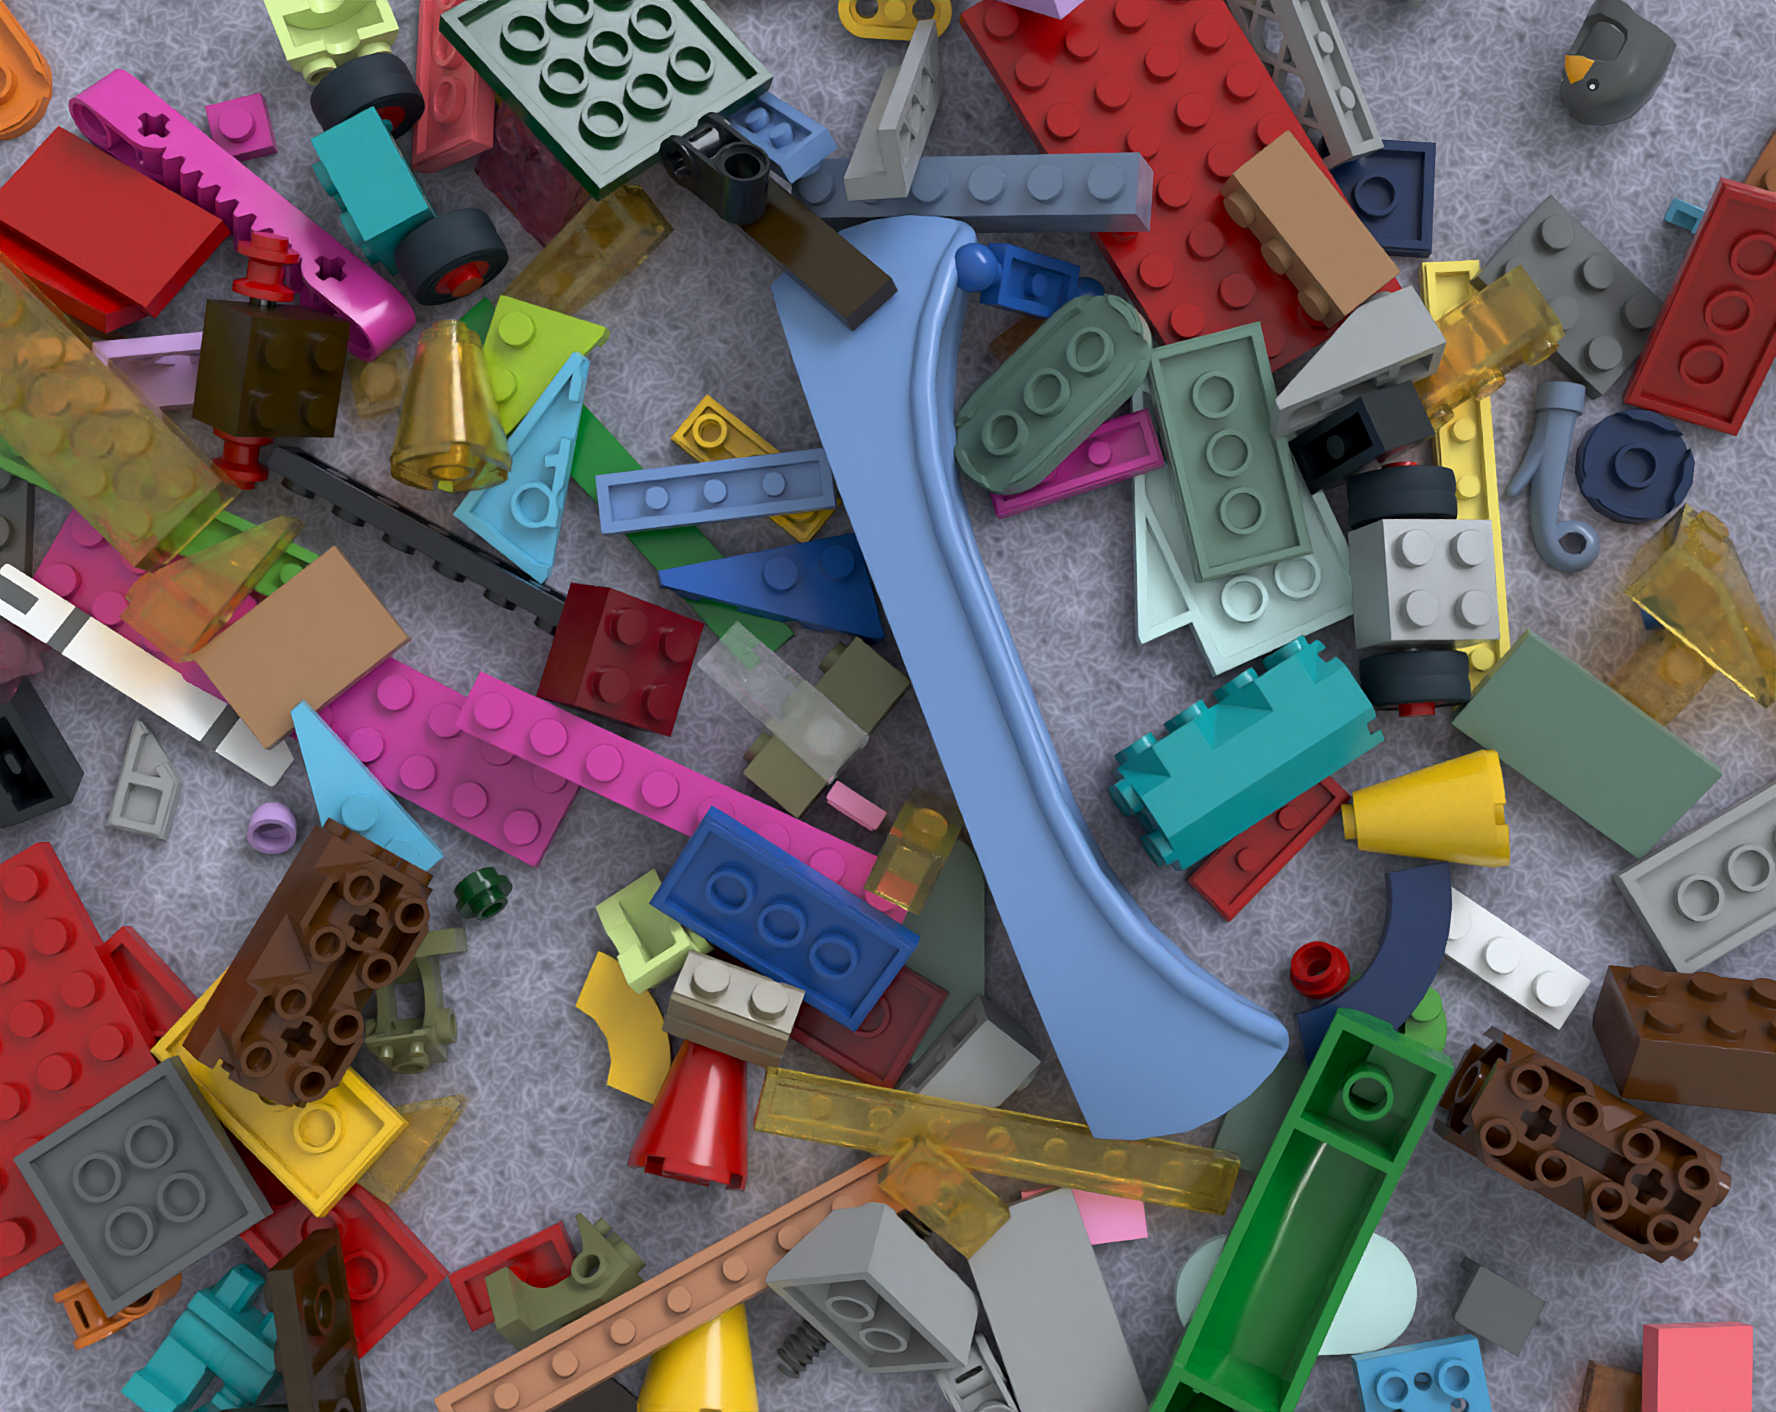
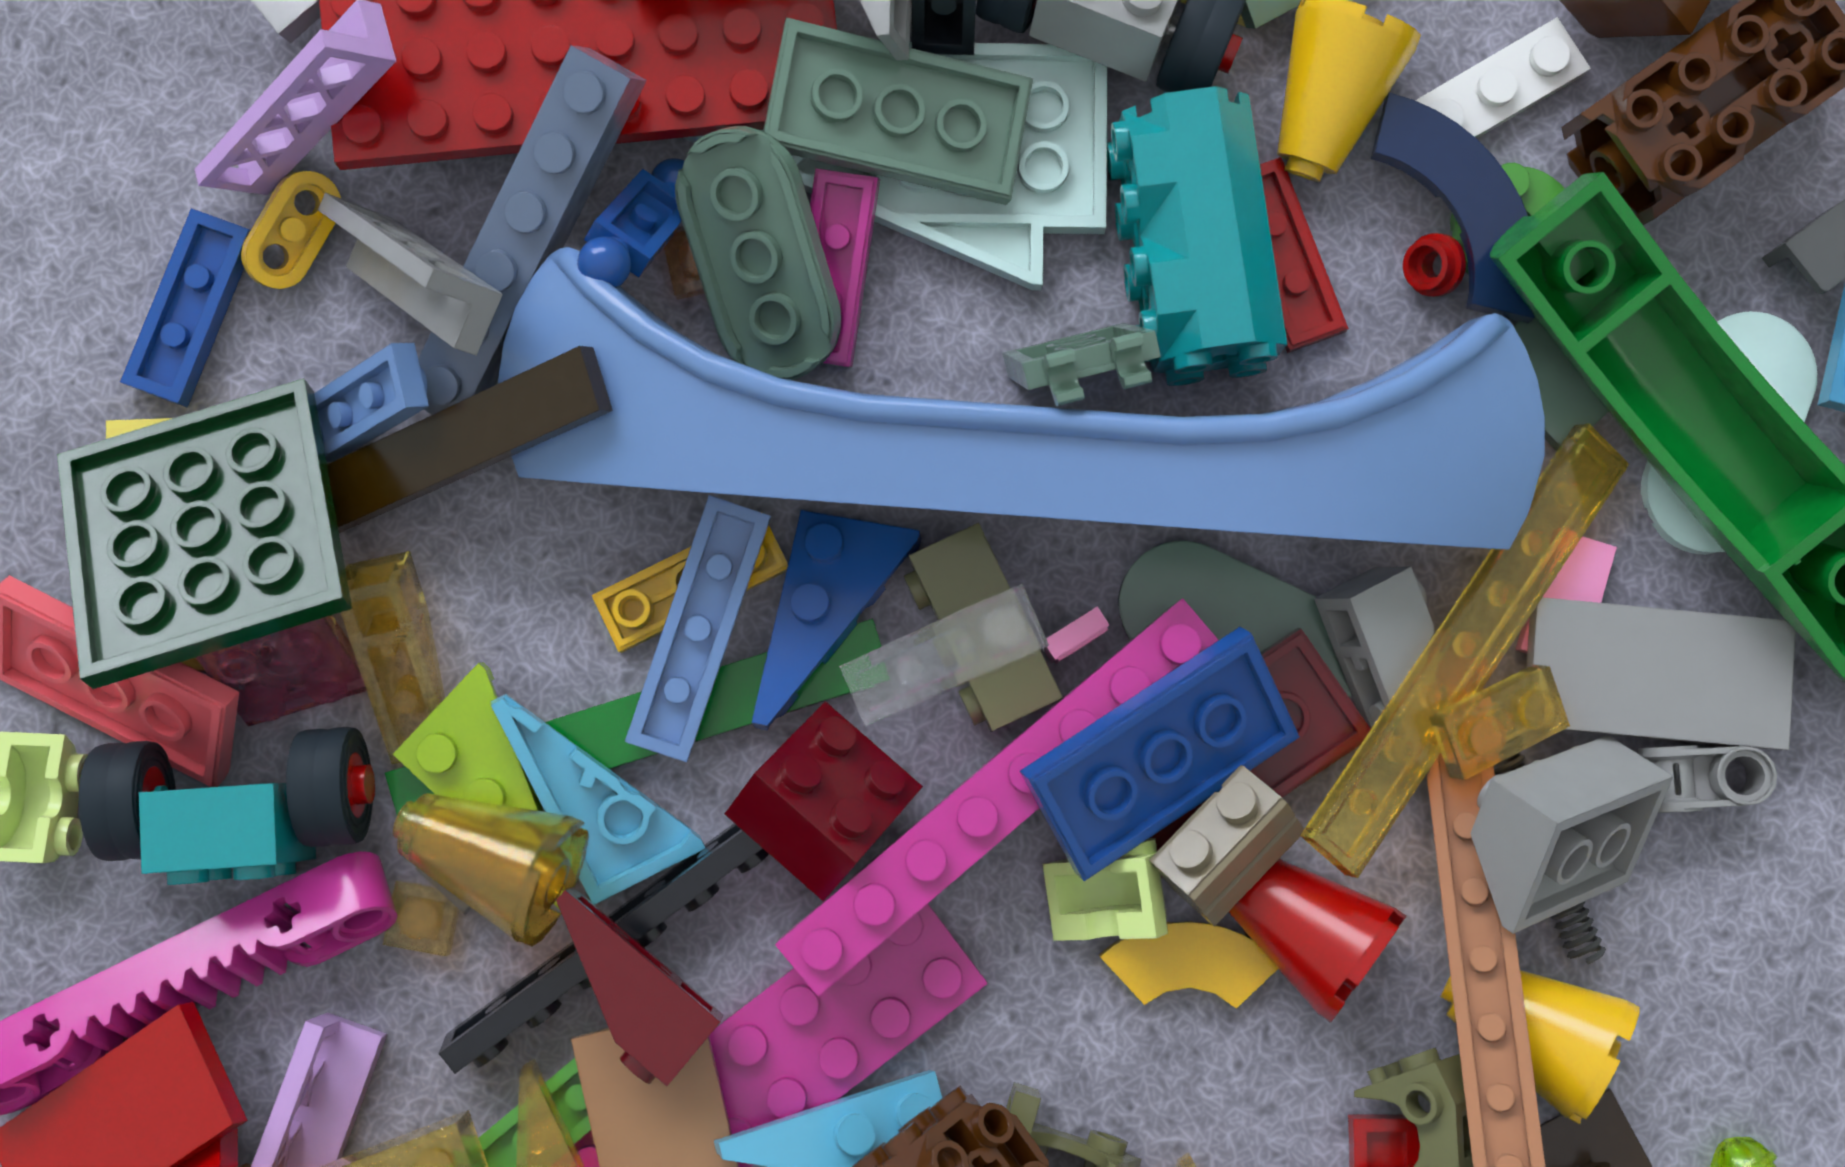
camera: 60 degrees left, 0 degrees up
(242, 127) = (85, 943): dark pink plate -> none
(267, 364) = (350, 1023): dark brown brick -> none
(390, 583) = (642, 1000): none -> dark red slope
(482, 894) = (991, 1048): dark green plate -> none
(723, 169) = (379, 465): black piece -> none
(915, 850) = (1153, 589): clear yellow slope -> none
(1086, 697) = (1081, 355): none -> sand green tile

